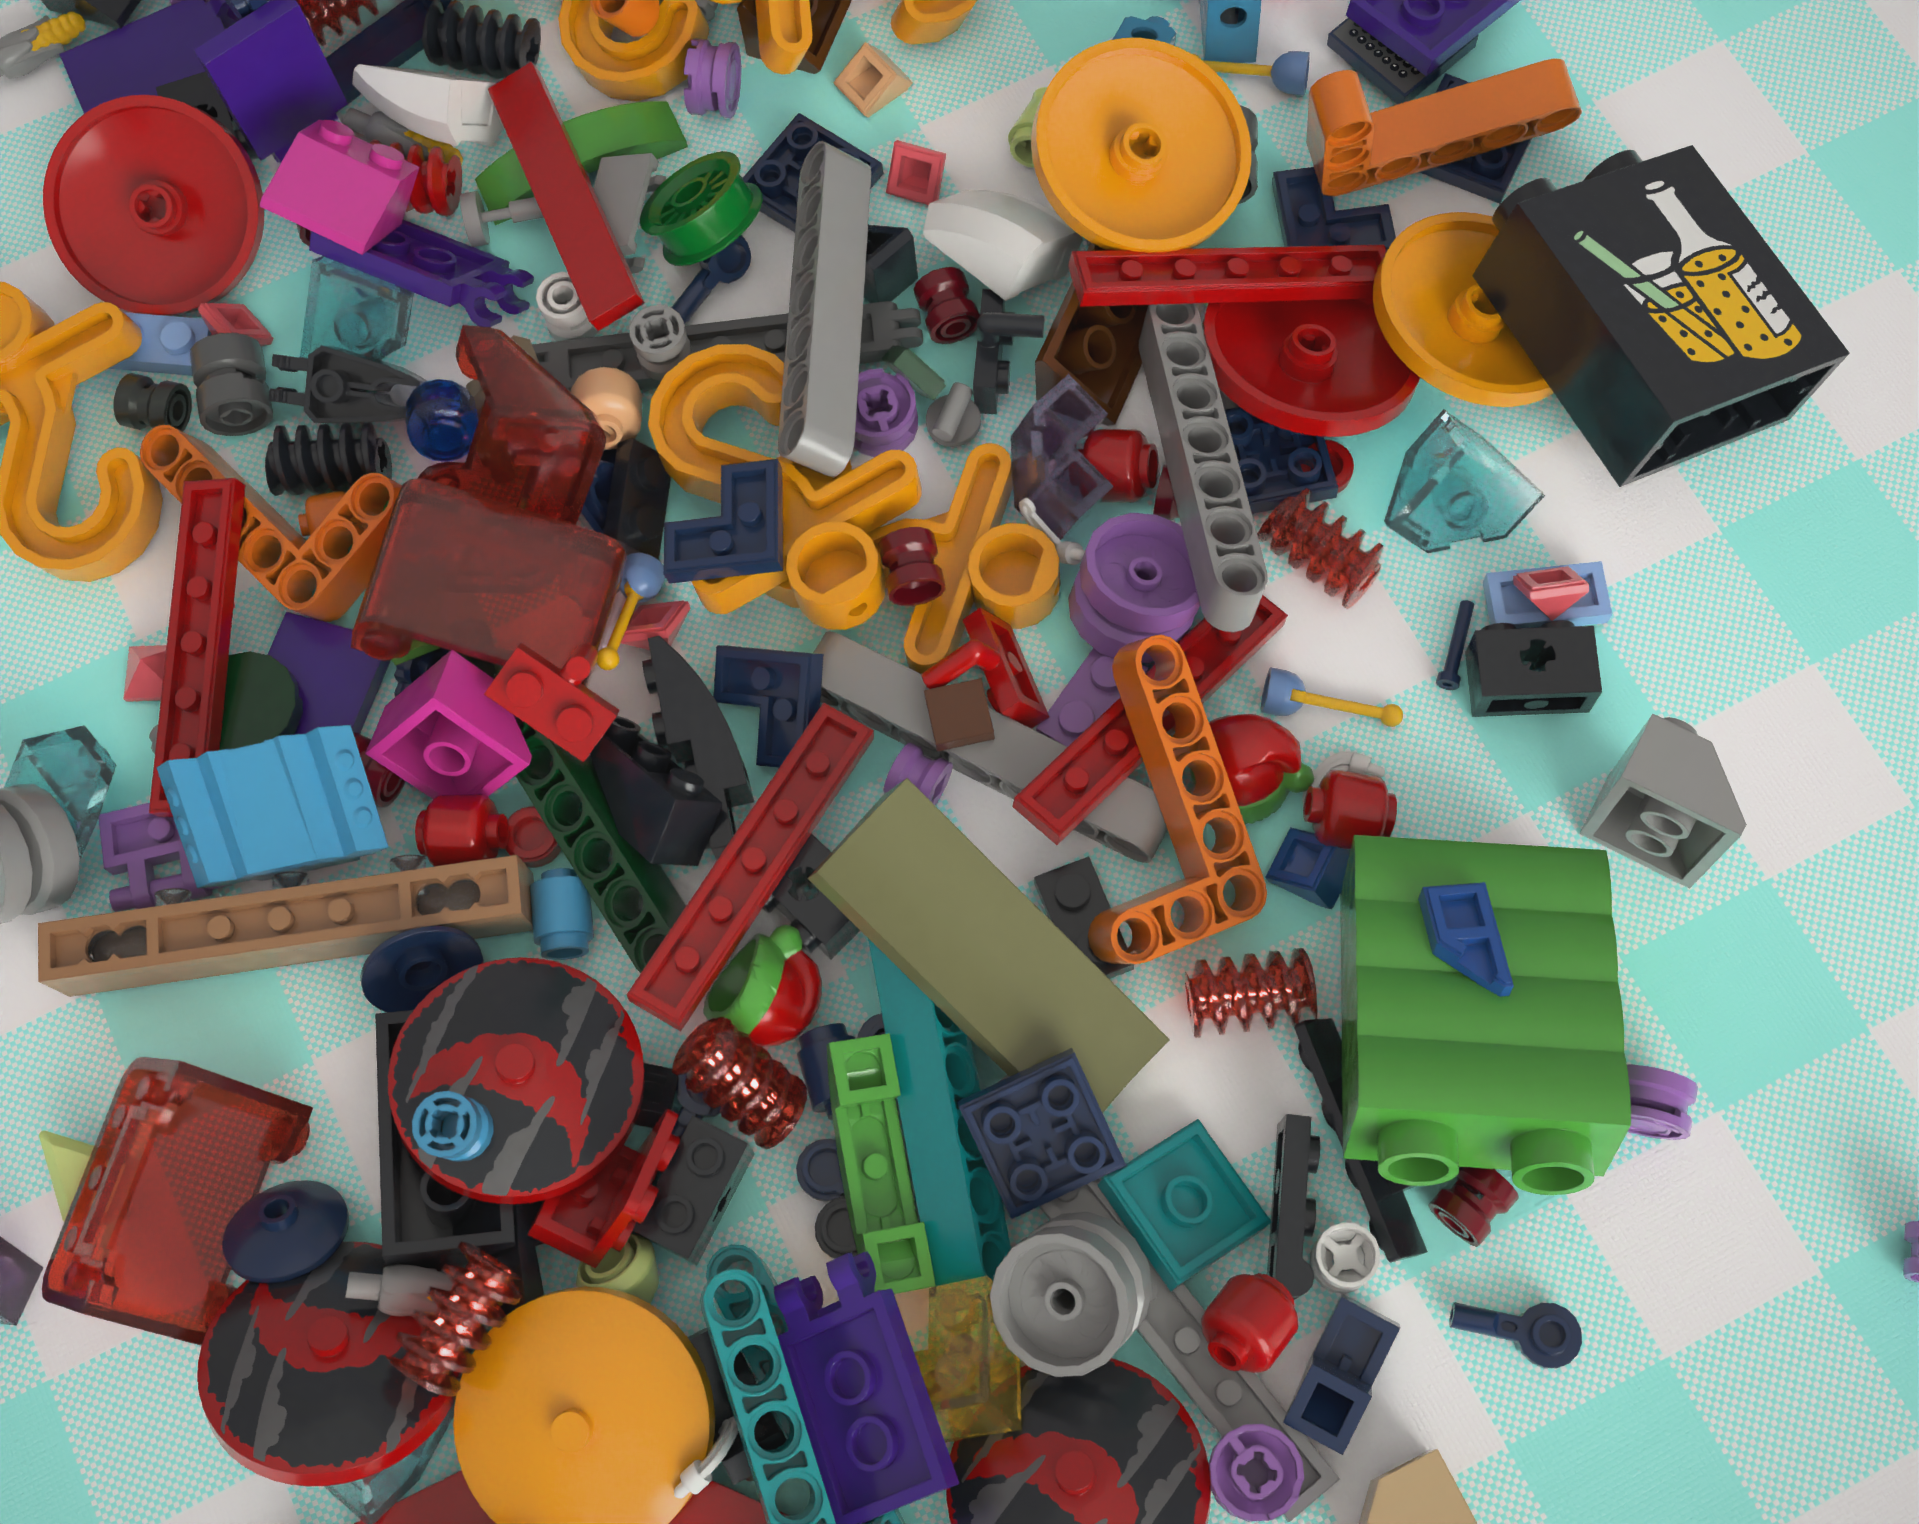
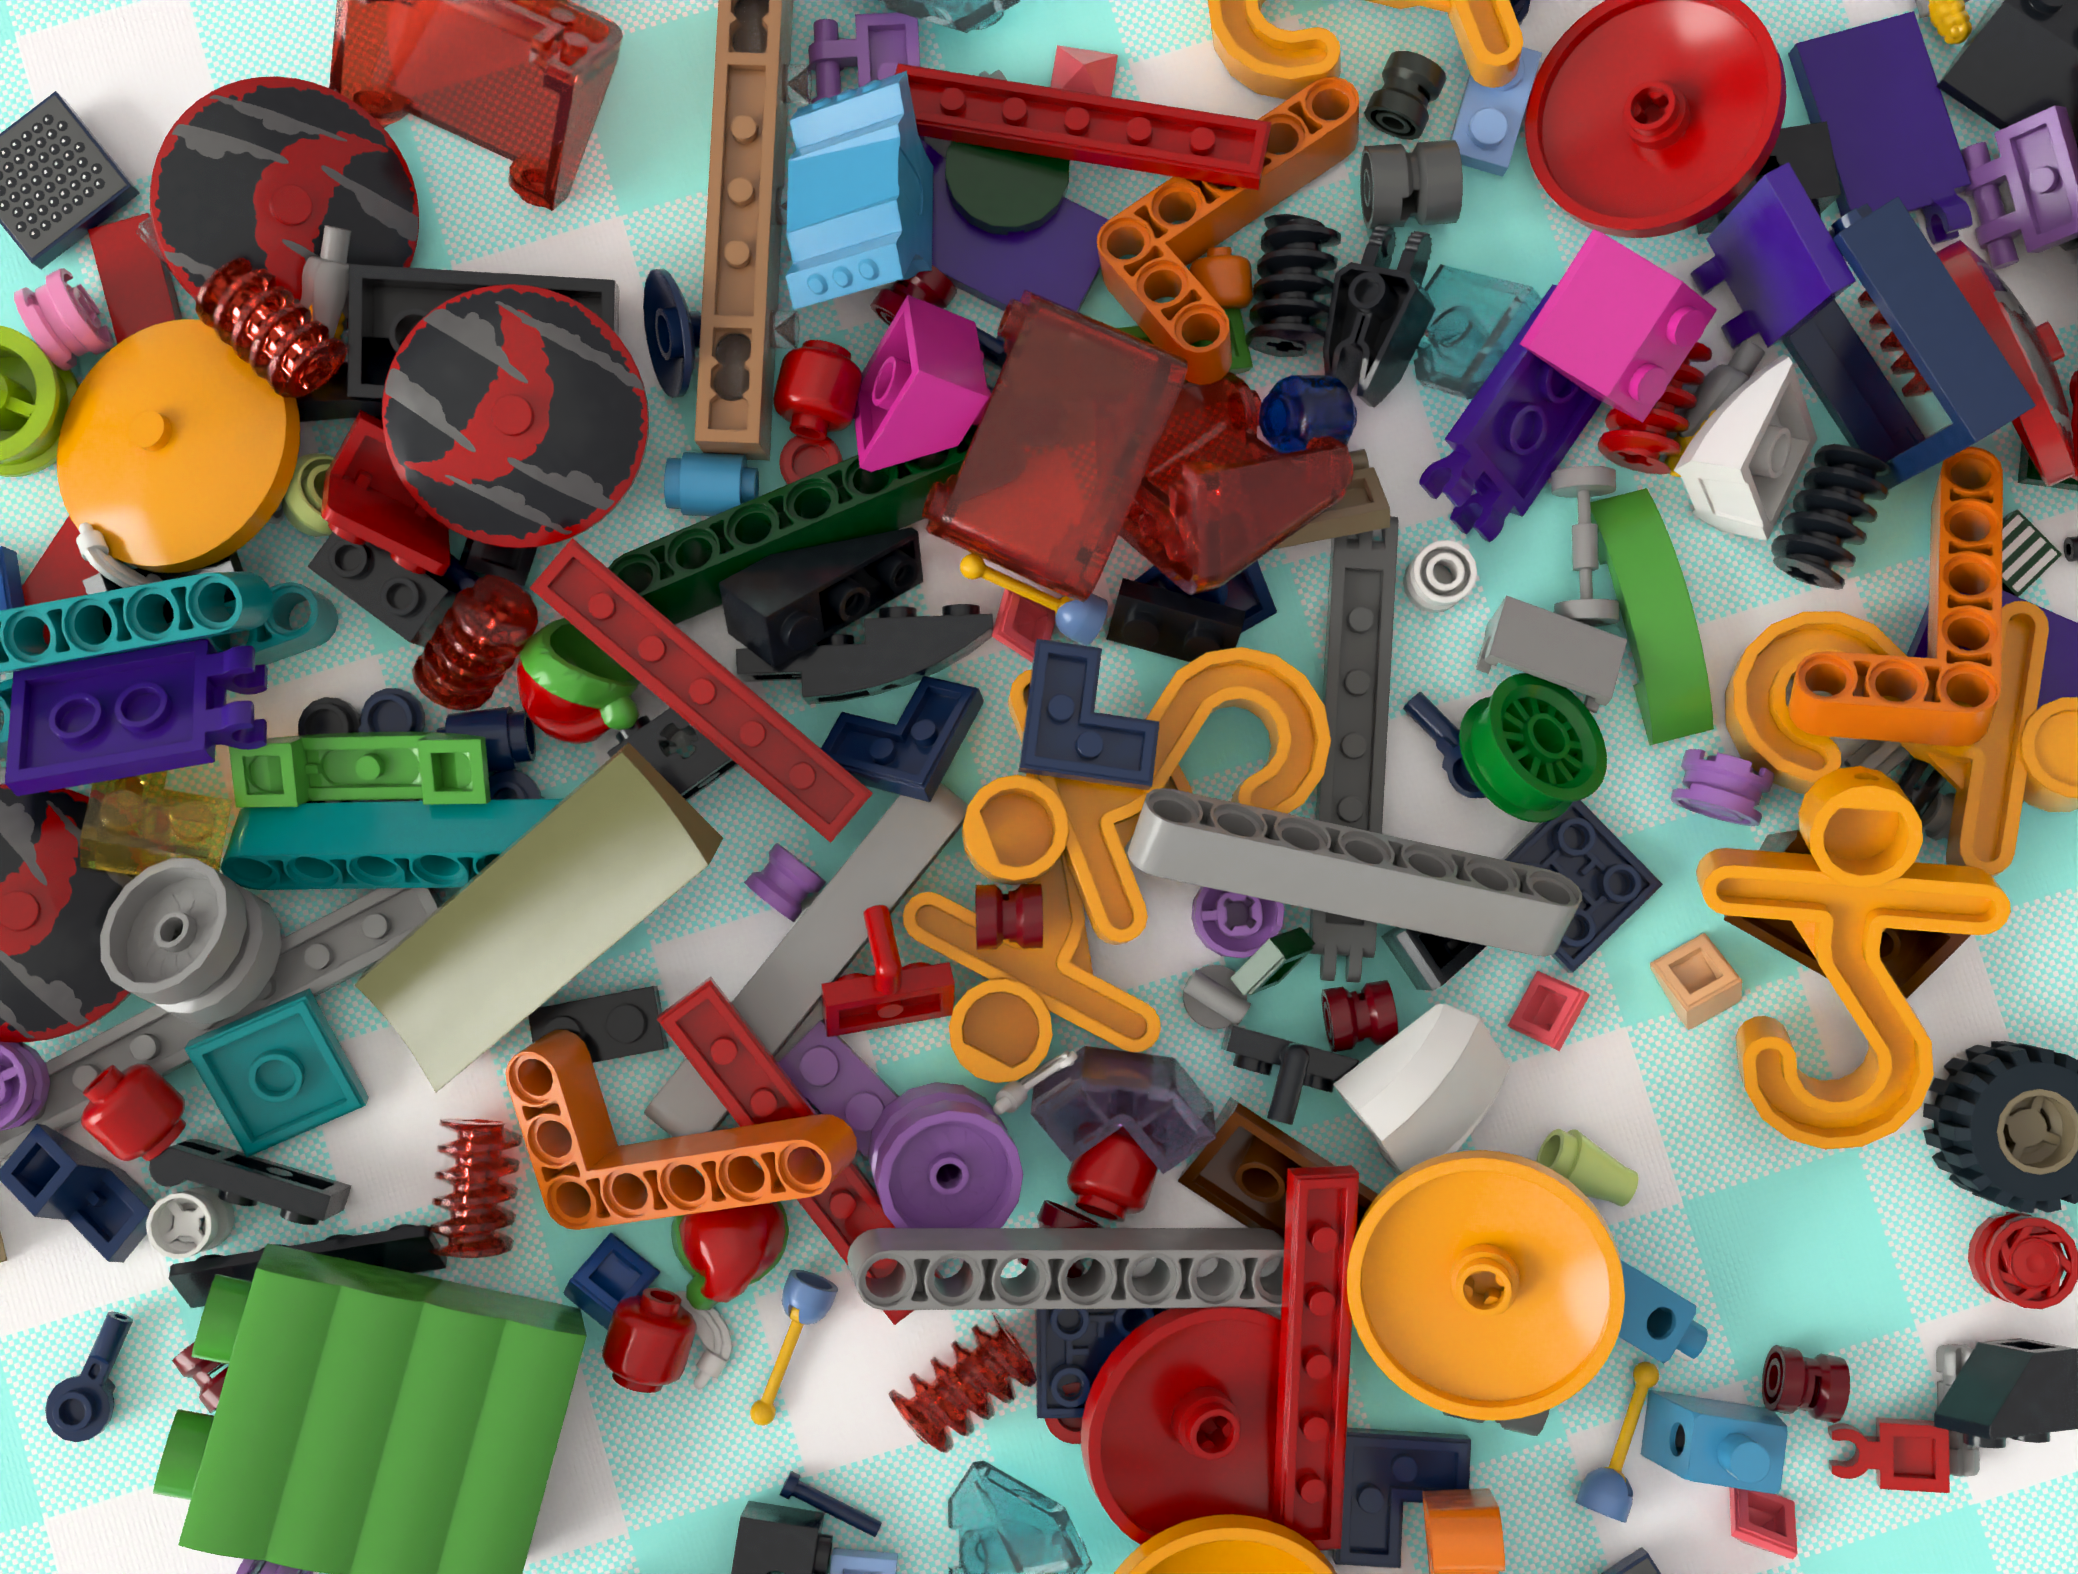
camera: 90 degrees right, 15 degrees up
(234, 319) = (1495, 195): coral slope -> none
(285, 1231) = (415, 190): dark blue dish -> none
(463, 1134) = (457, 348): dark azure wheel -> none
(554, 698) = (917, 501): red plate -> none
(565, 197) = (1577, 589): red tile -> none
(615, 401) = (1291, 603): light nougat head -> none
(659, 340) = (1347, 685): light grey wheel -> none
(959, 714) = (830, 938): reddish brown tile -> none
(1041, 1133) = (357, 941): dark blue tile -> none
(1466, 933) = (430, 1427): blue tile -> none

